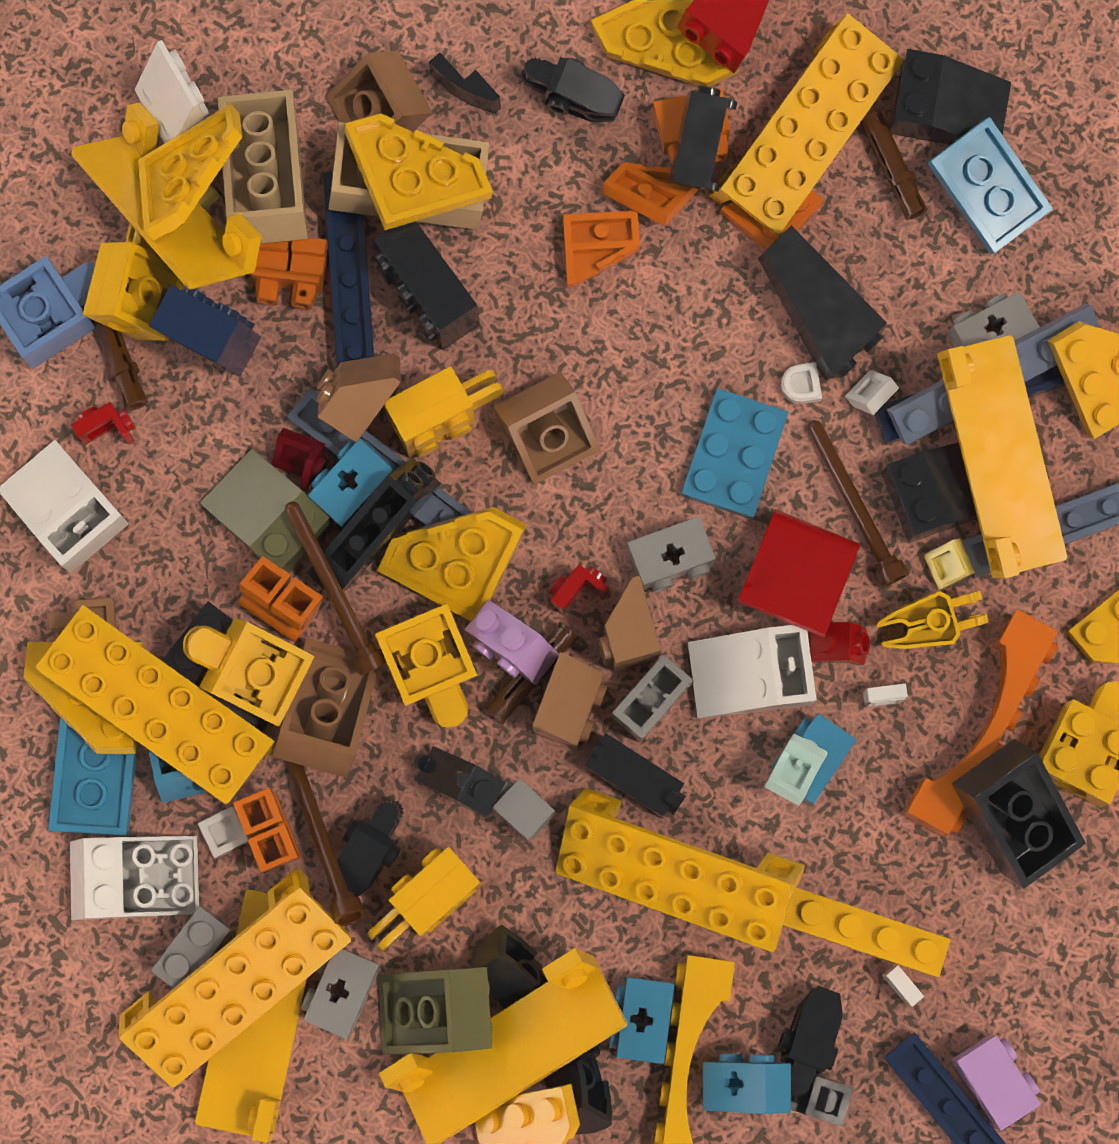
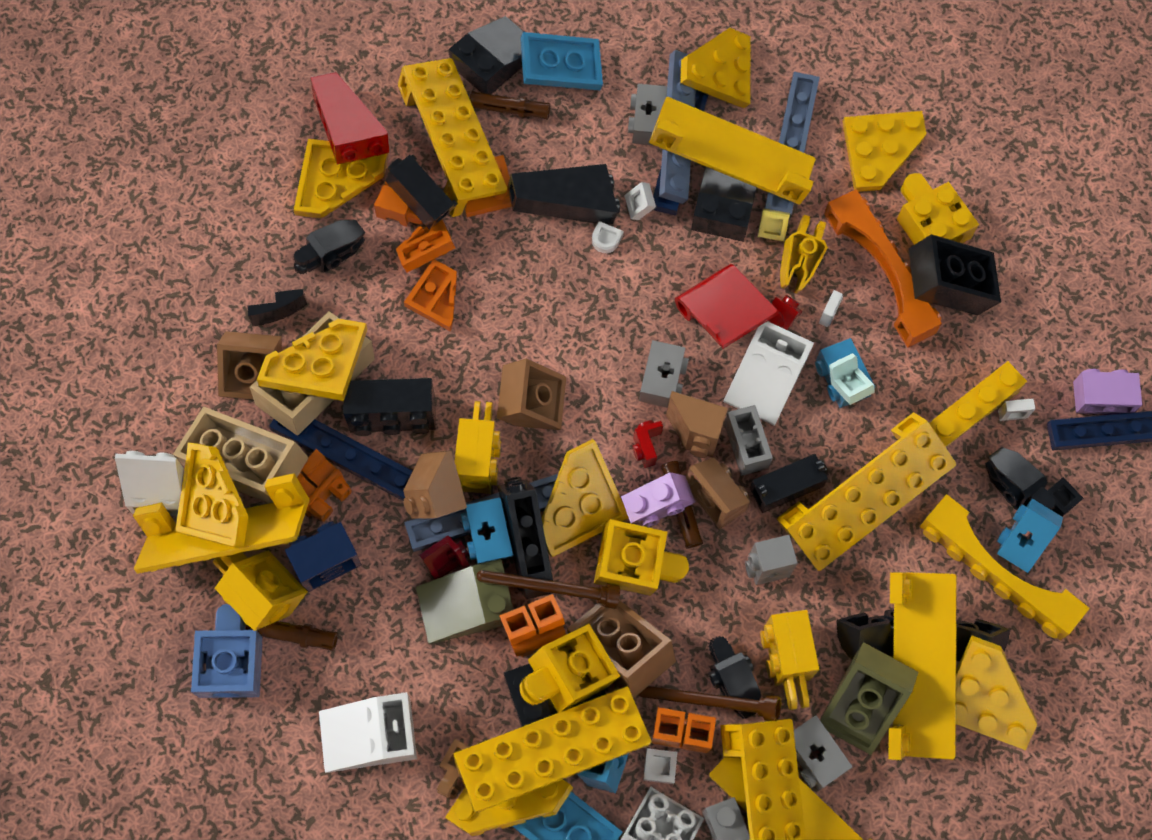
camera: 60 degrees left, 10 degrees down
(98, 421) = (327, 675): red bracket -> none
(458, 780) = (728, 586): black brick -> none
(652, 1042) = (944, 559): dark azure brick -> none
(734, 454) = (623, 301): dark azure plate -> none
(888, 567) = (752, 259): reddish brown piece -> none

